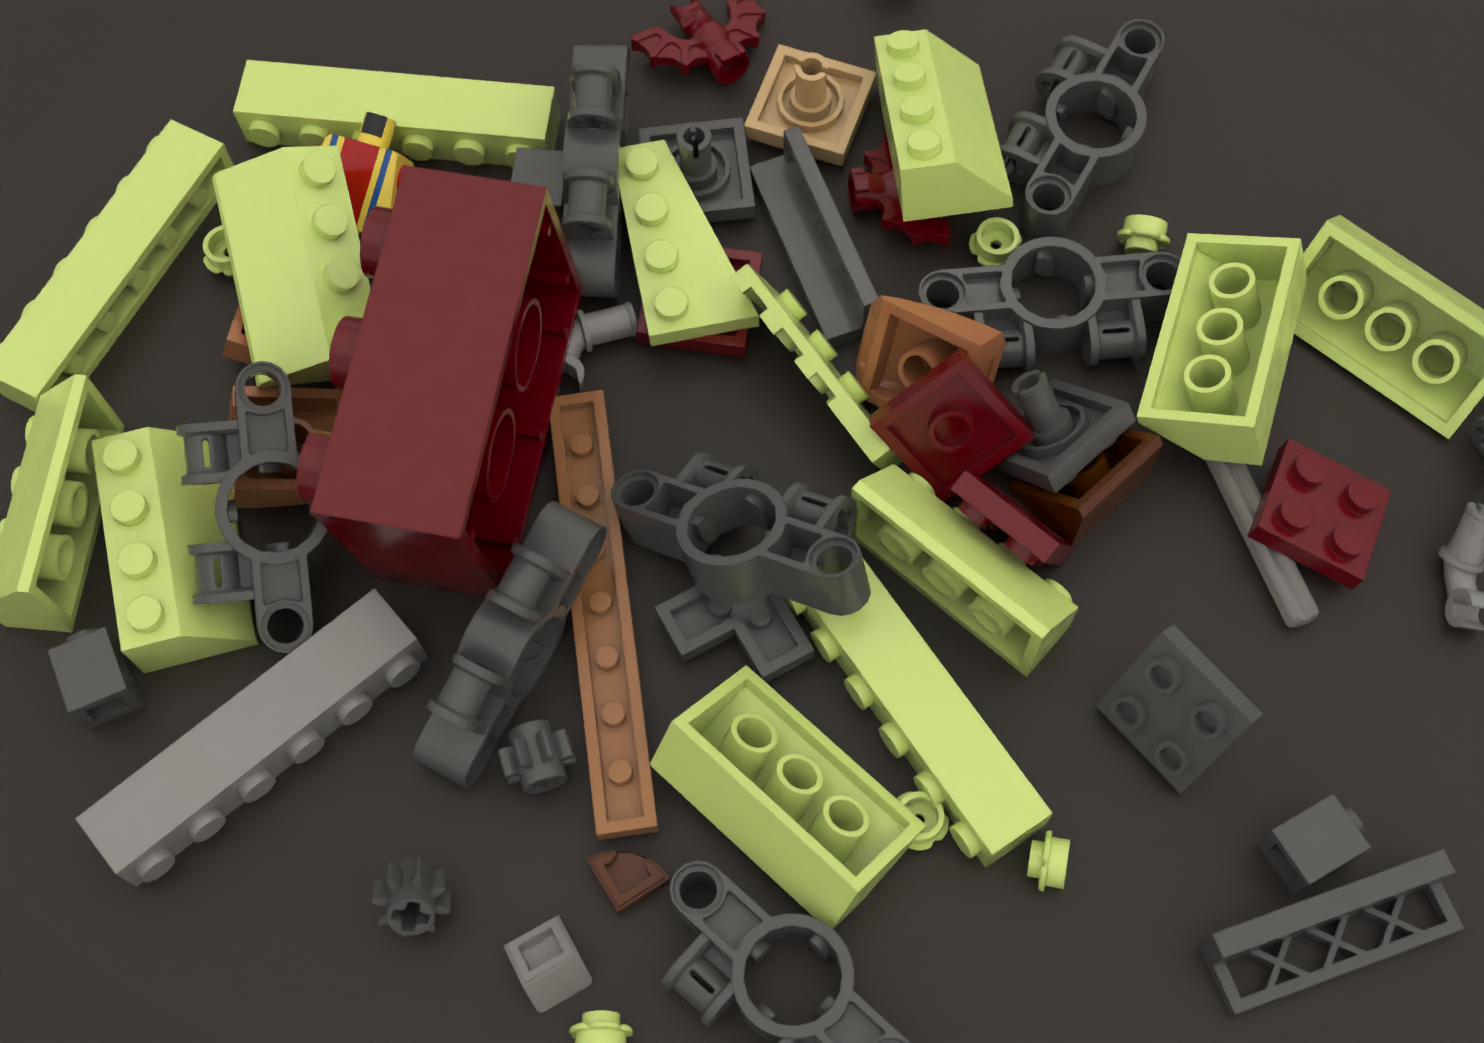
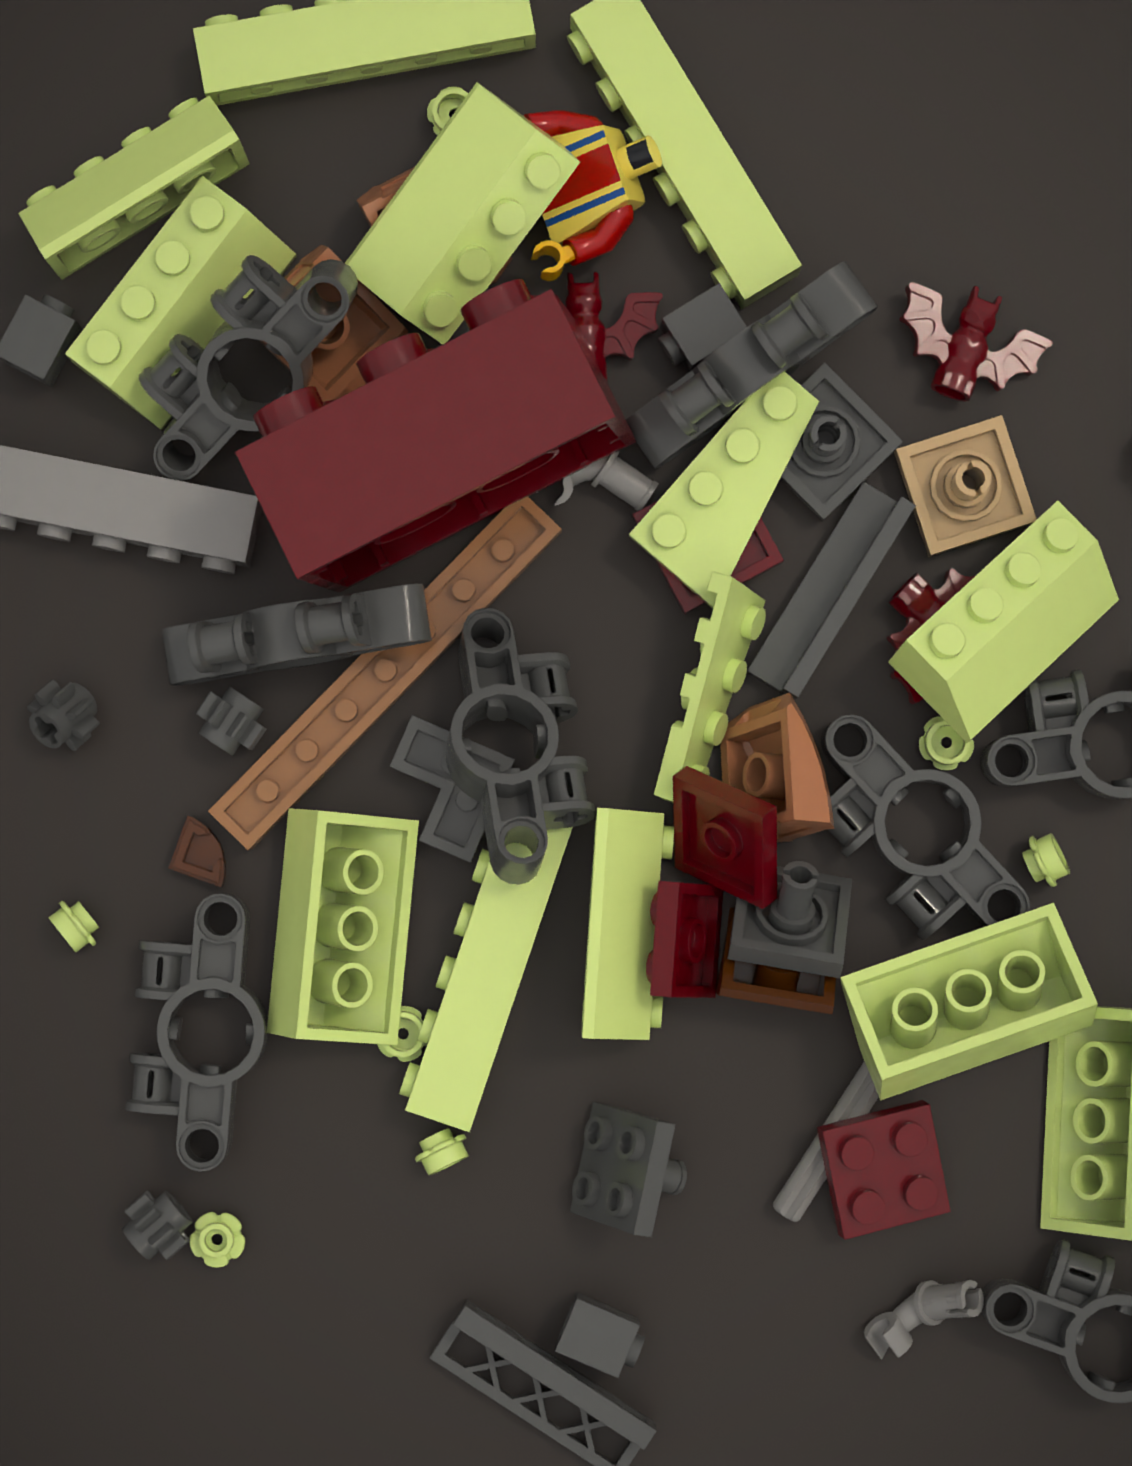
camera: 45 degrees right, 20 degrees up
(548, 964) = (96, 846): light grey slope -> none

